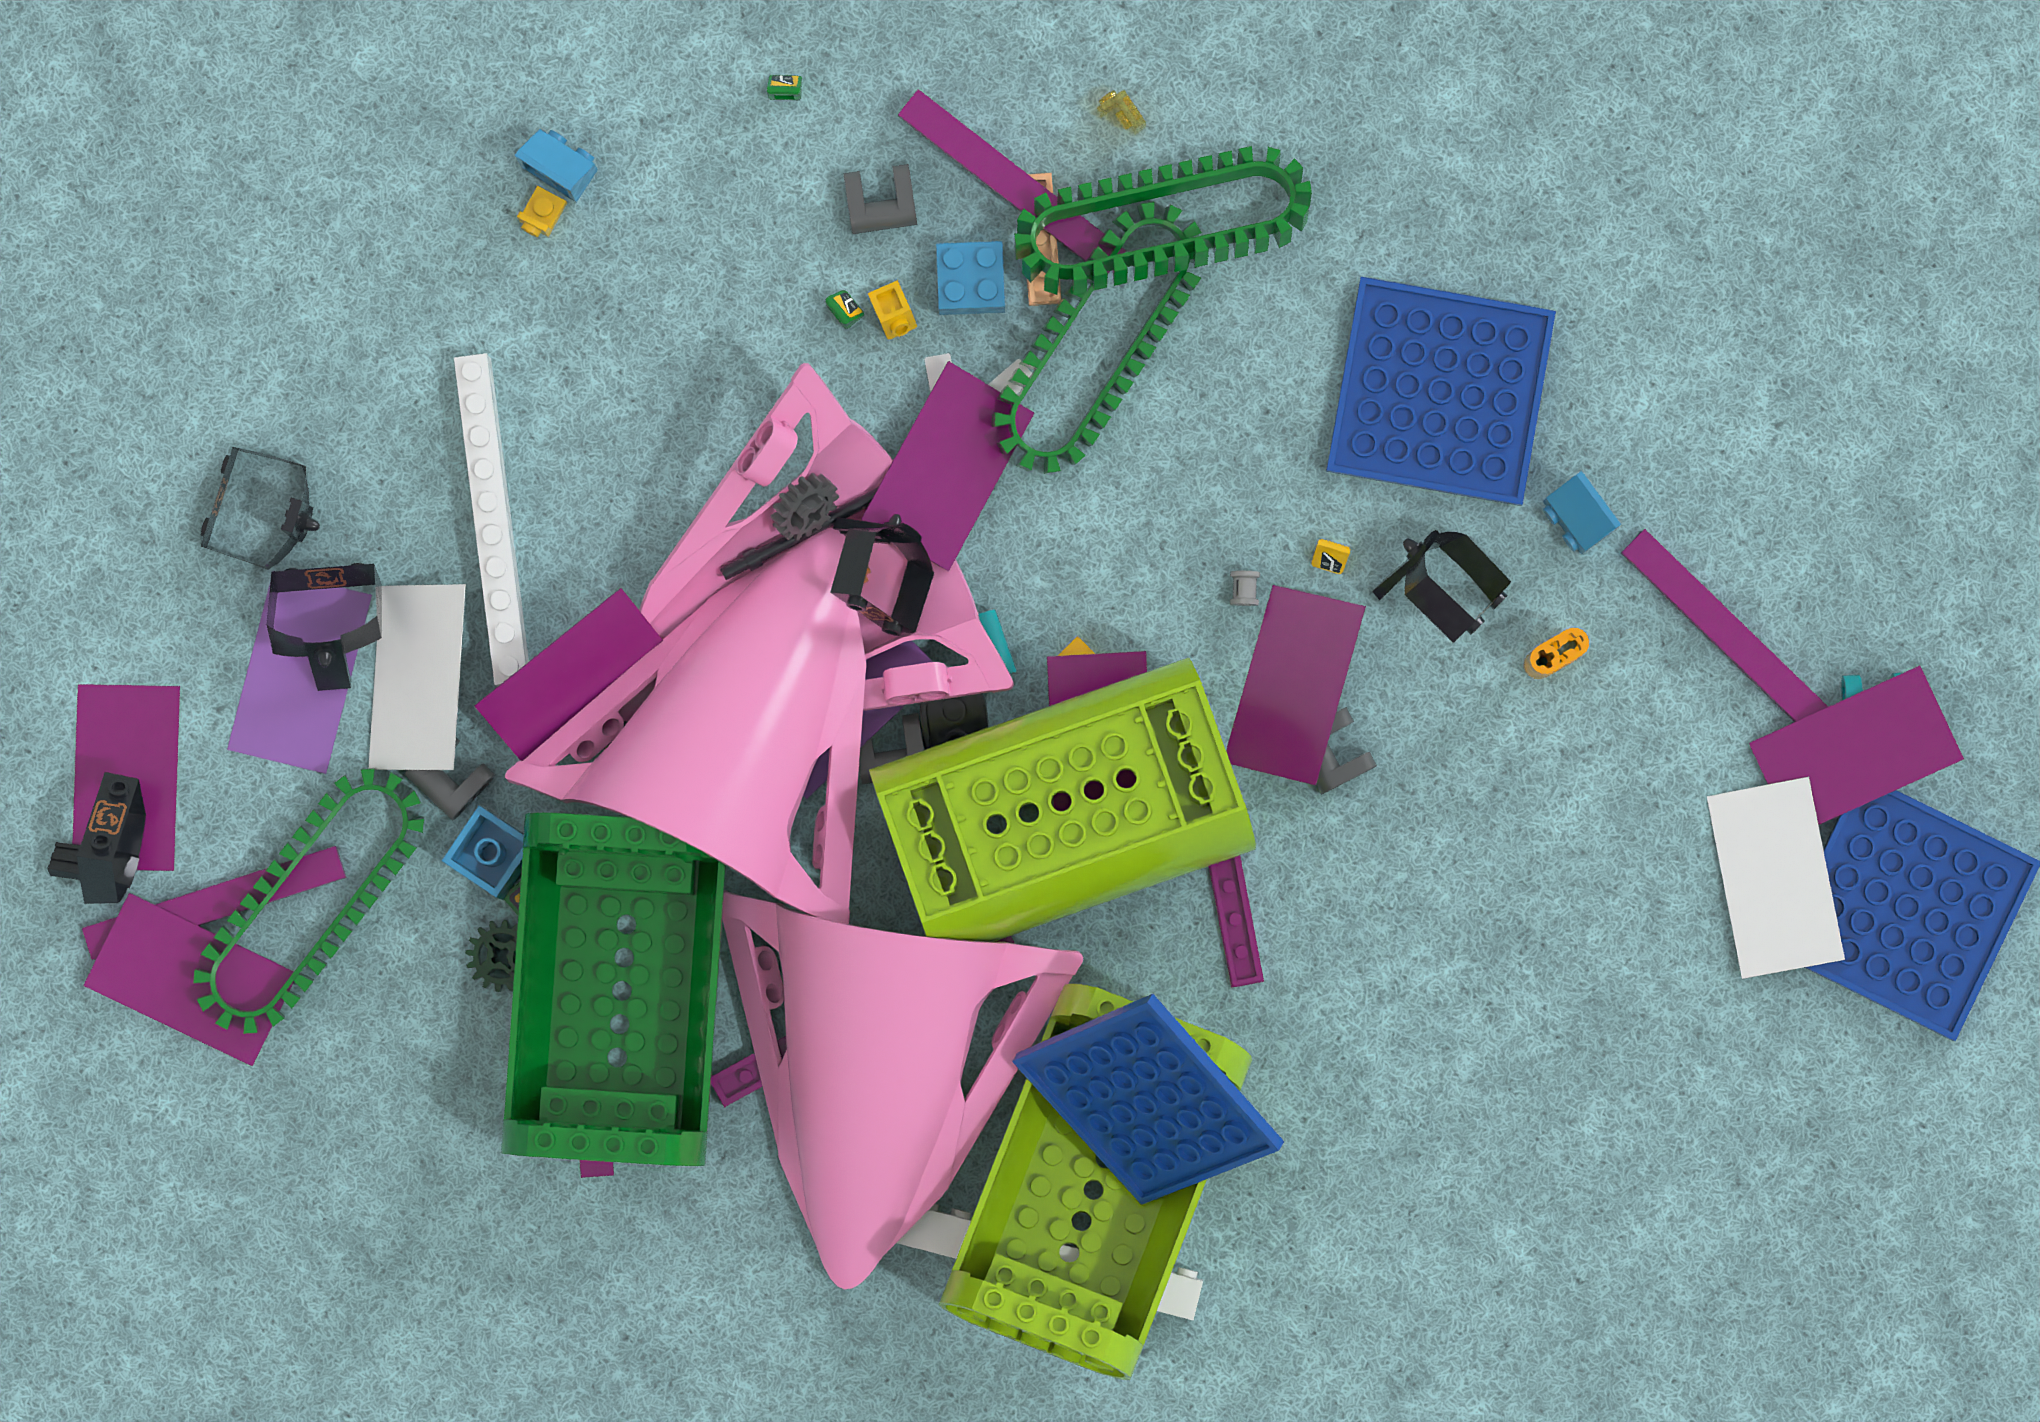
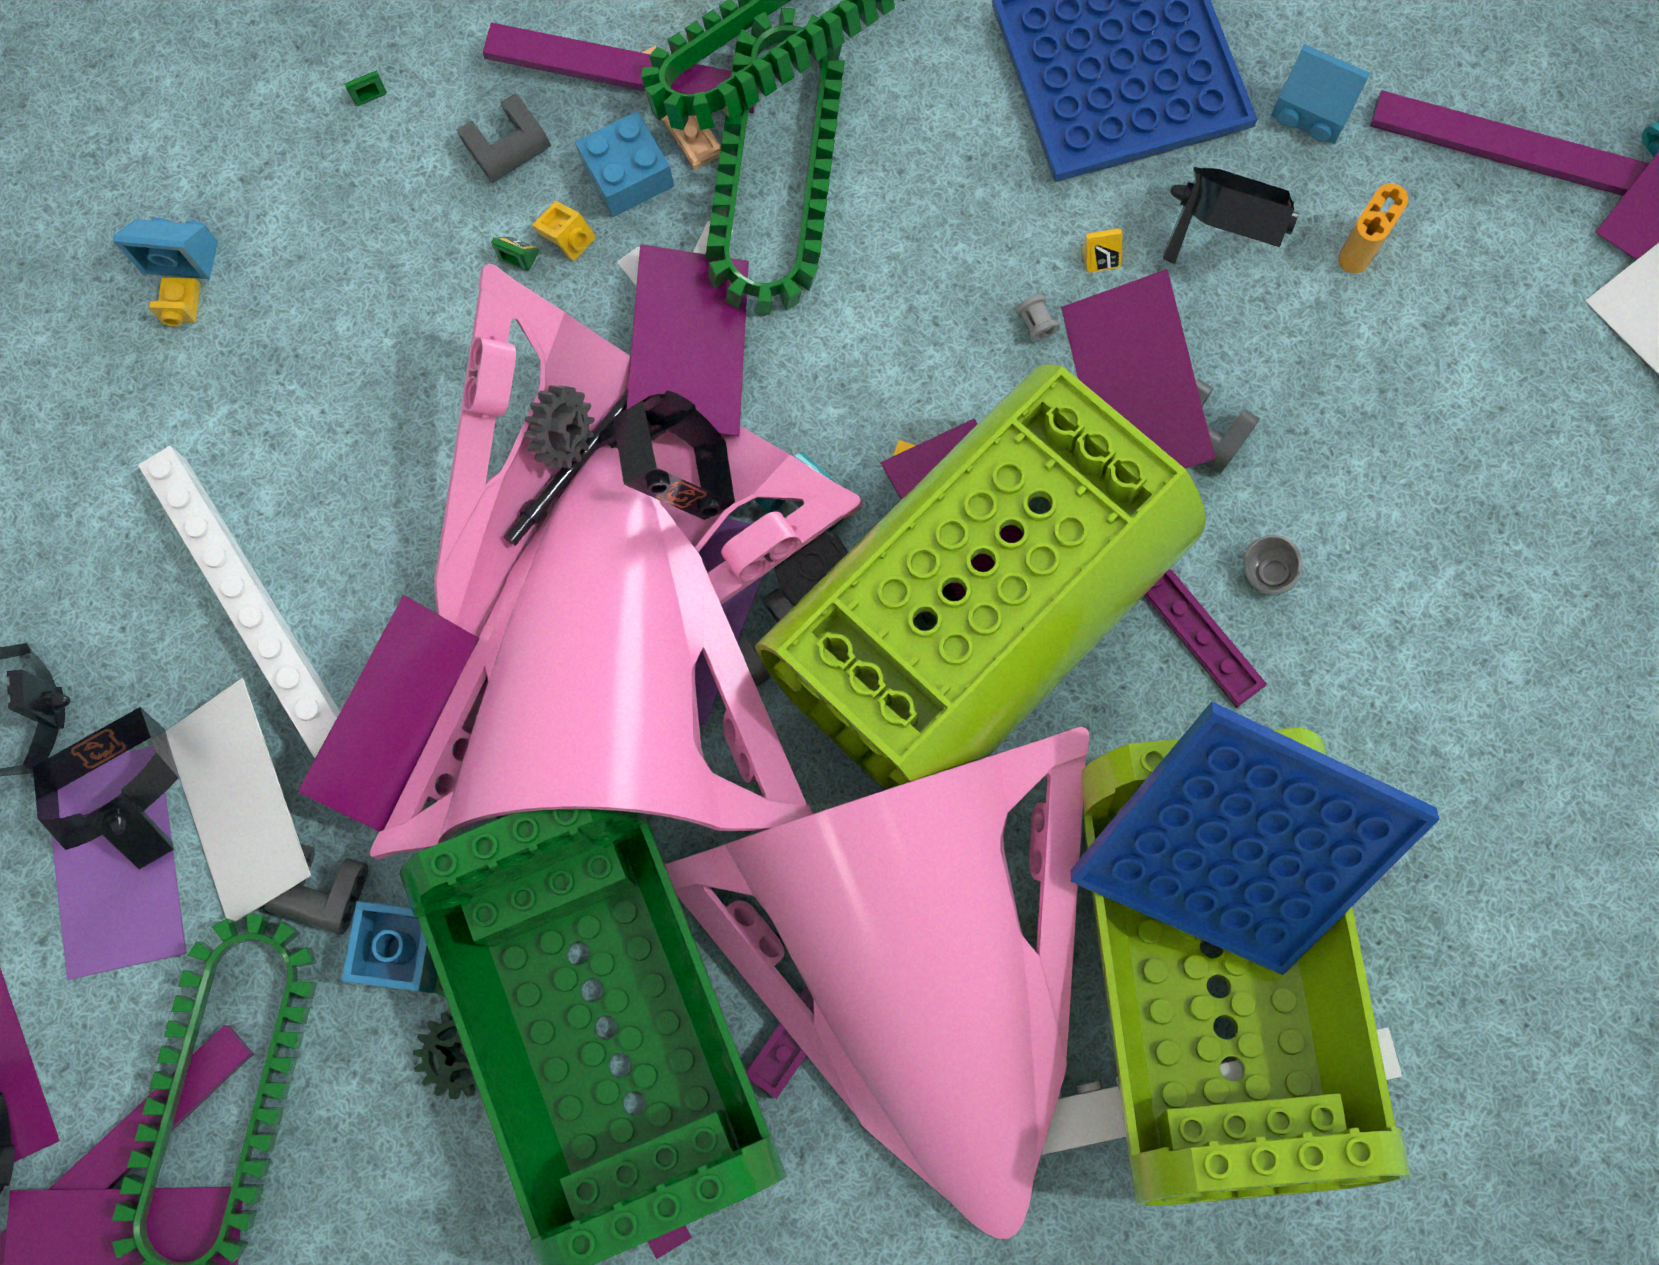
camera: 25 degrees left, 10 degrees down
(1318, 891) = (1273, 565): none -> light grey hair

